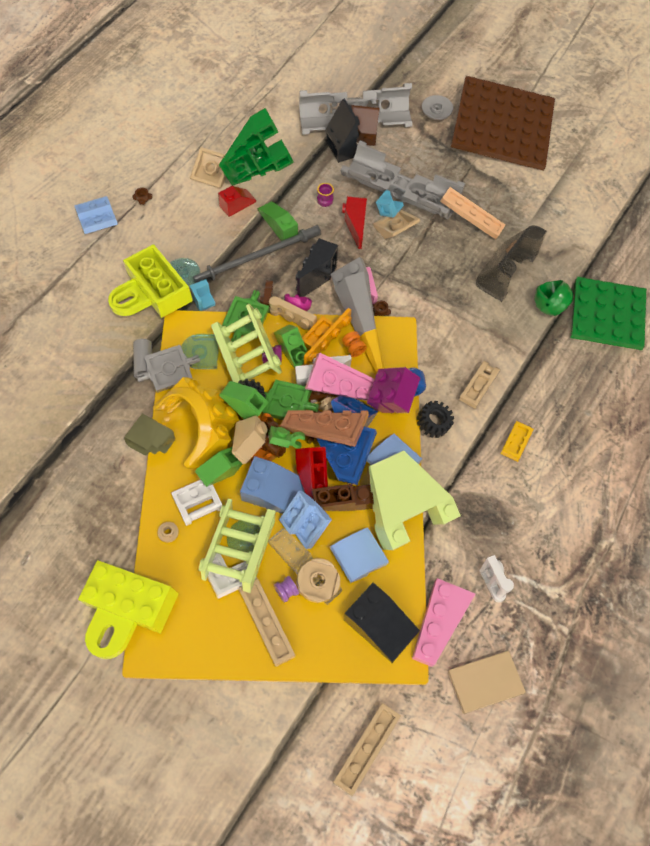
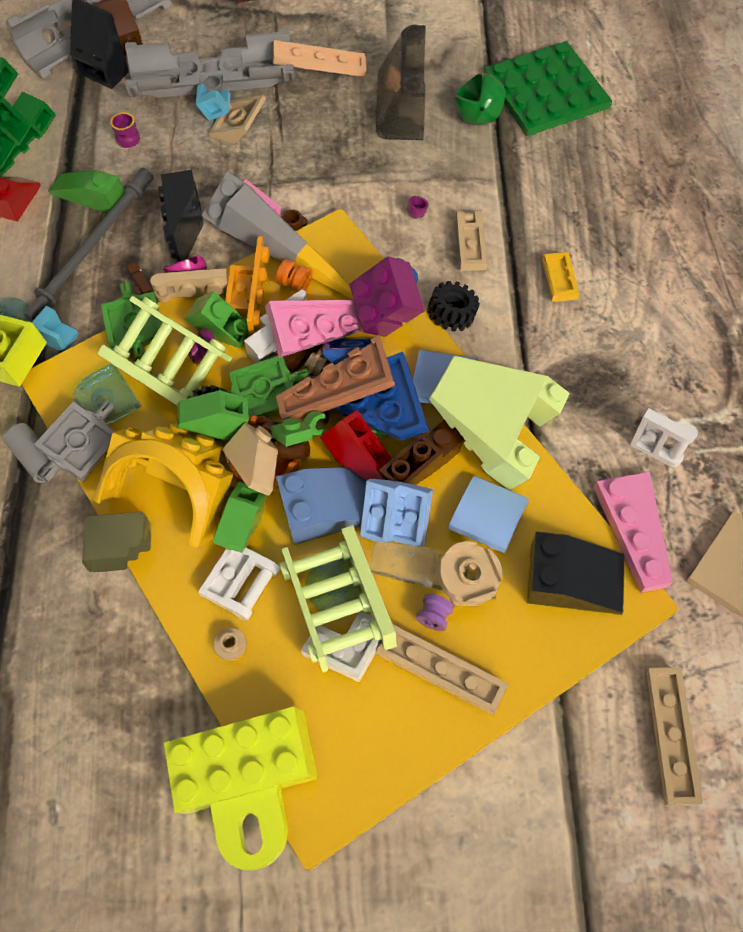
camera: 30 degrees left, 0 degrees up
(355, 217) = (183, 137): red slope -> none
(465, 343) = (417, 207): none -> magenta hinge

